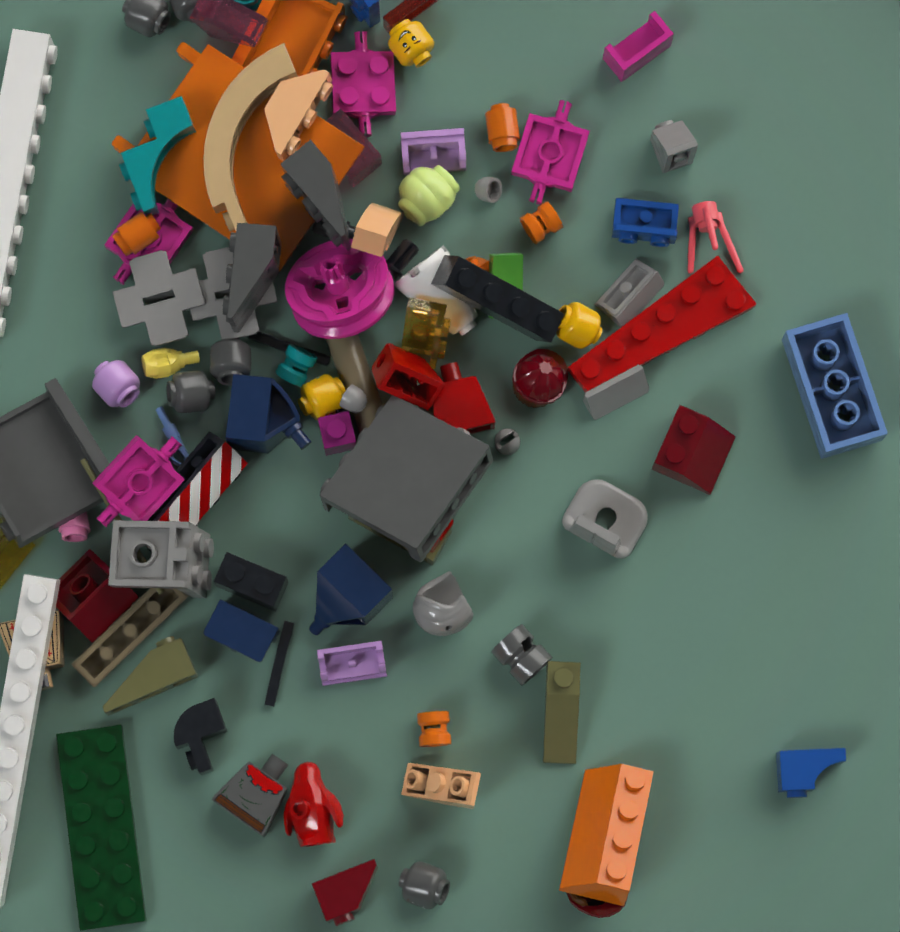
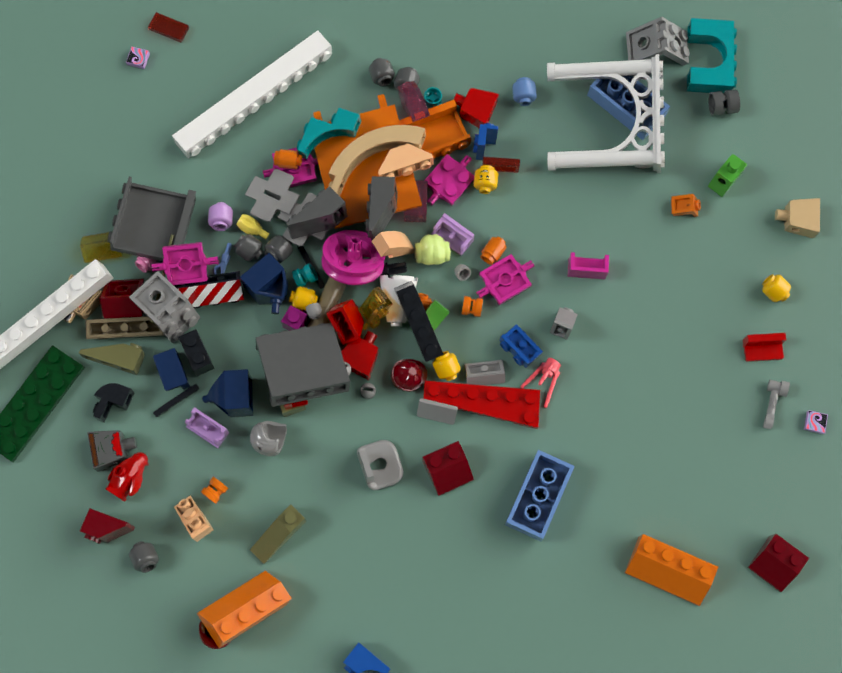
camera: 40 degrees right, 5 degrees down
(521, 654) = (283, 491): dark grey wheel -> none

